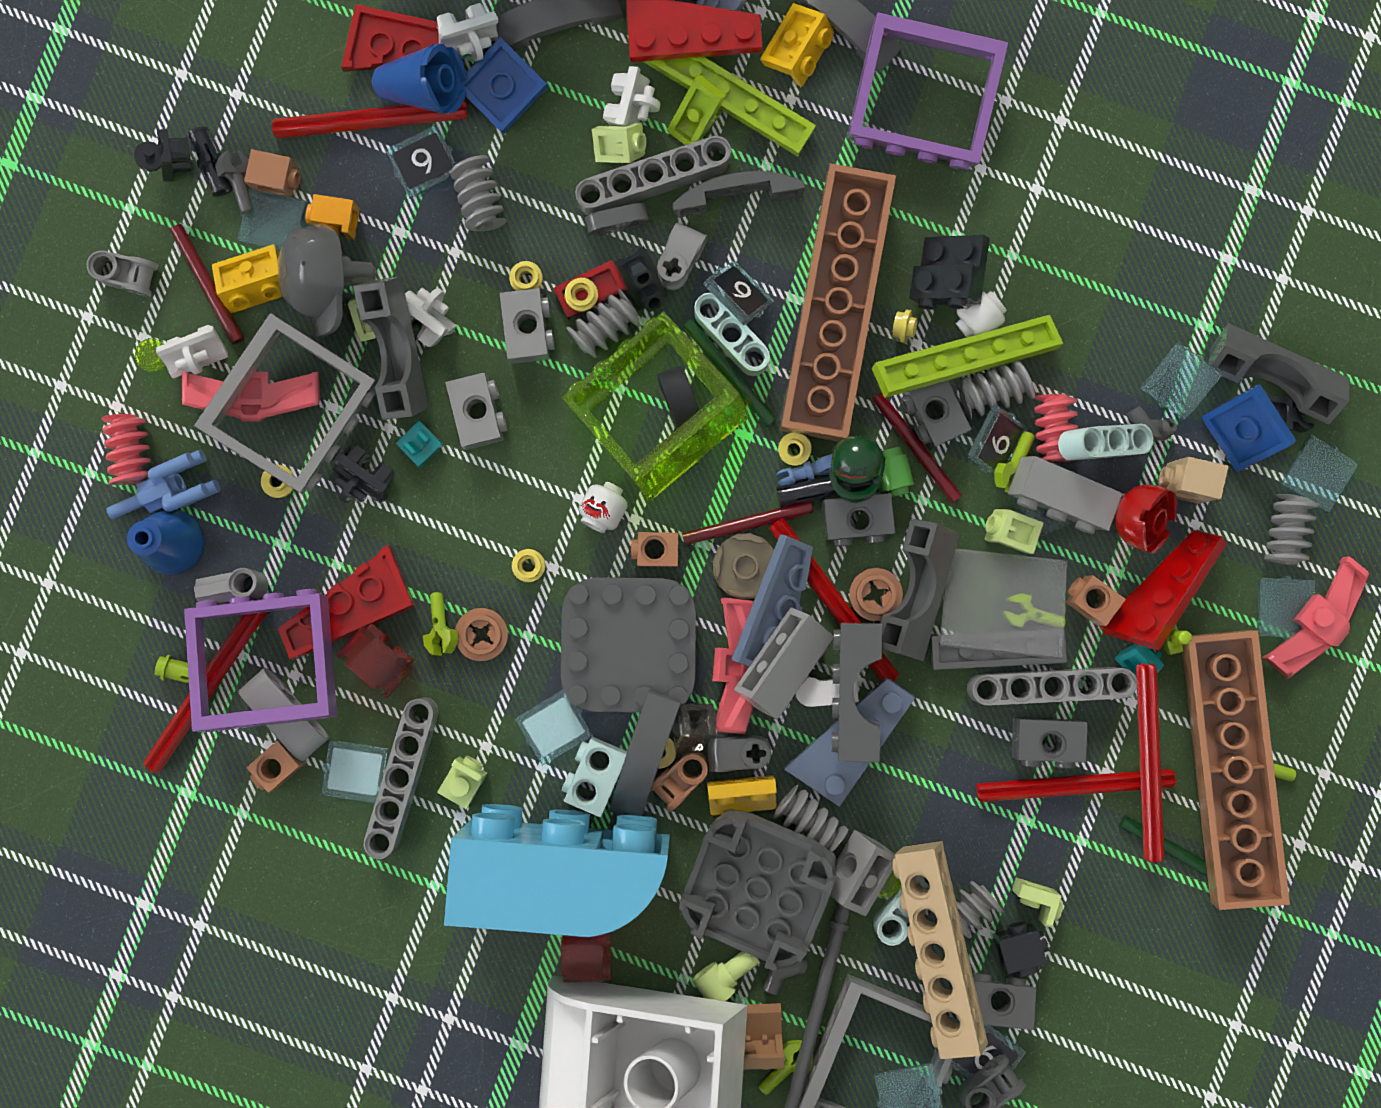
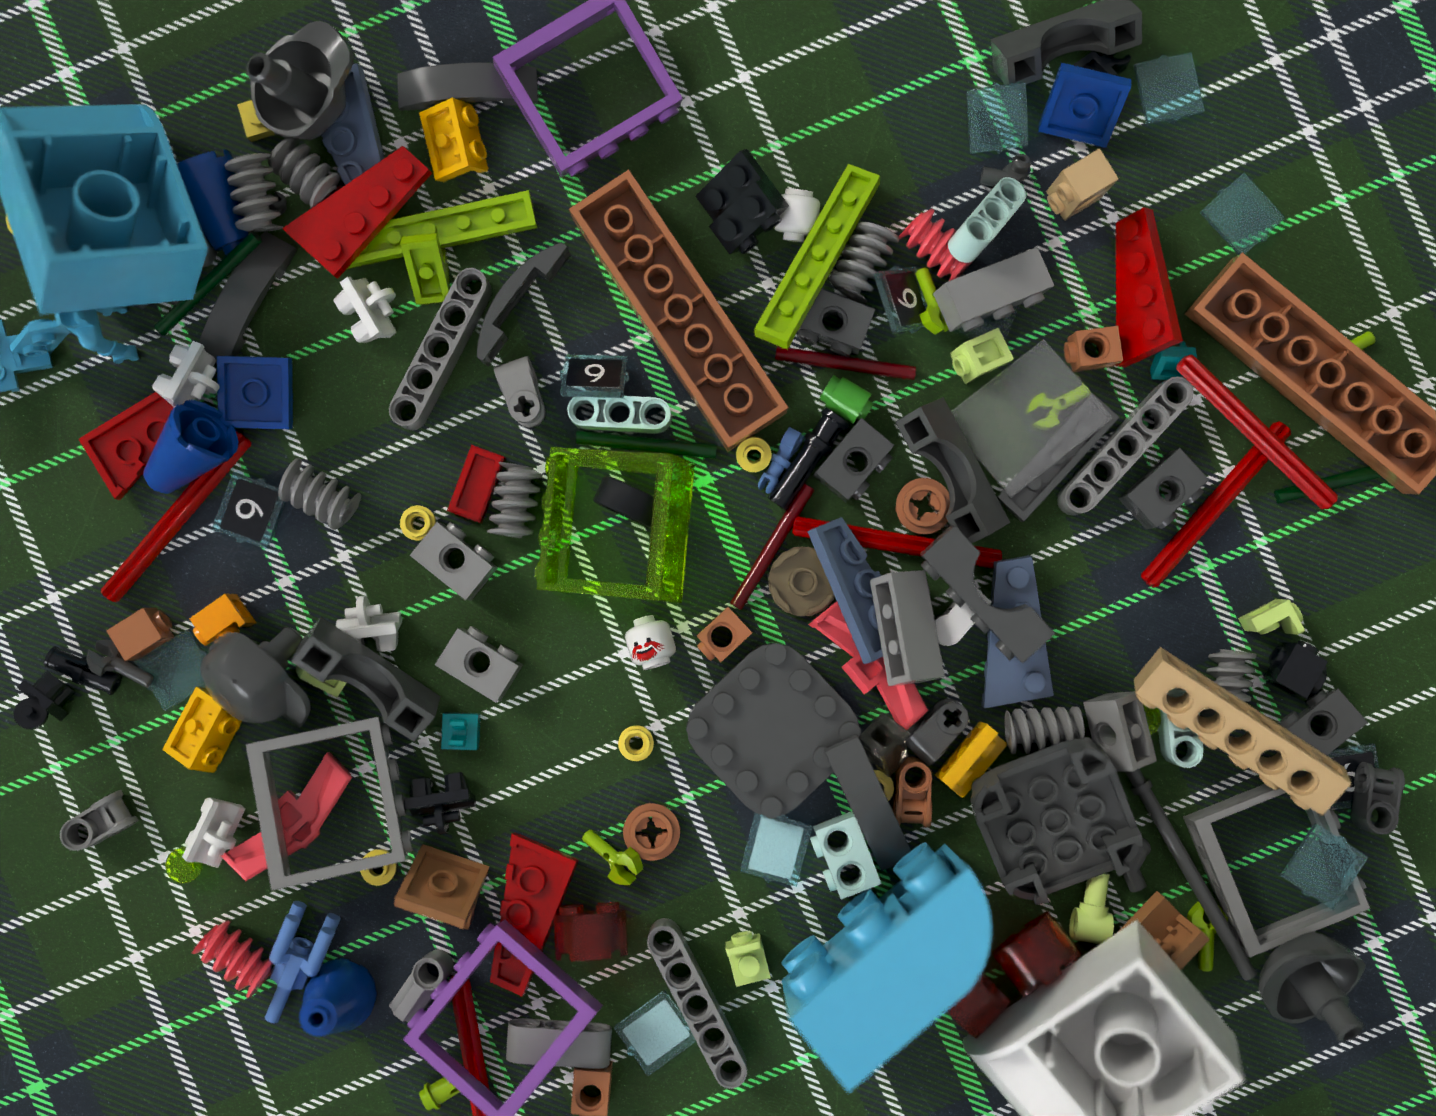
camera: 45 degrees left, 0 degrees up
(206, 283) = (172, 767): dark red bar -> none
(307, 535) = (442, 887): none -> medium nougat bracket
(577, 285) = (464, 489): light yellow plate -> none
(617, 219) = (445, 410): dark grey beam -> none
(619, 143) = (389, 350): yellowish green bracket -> none
(642, 280) = (510, 439): black hips -> none
(658, 965) = (1036, 954): none -> clear red brick
(857, 461) = (813, 419): dark green helmet -> none
(904, 326) = (746, 279): light yellow plate -> none
(1144, 516) = (1070, 249): red cylinder -> none
(1175, 640) = (1186, 319): lime bar -> none
(1291, 529) = (1190, 151): light grey piece -> none
(1322, 620) = (1279, 197): coral plate -> none

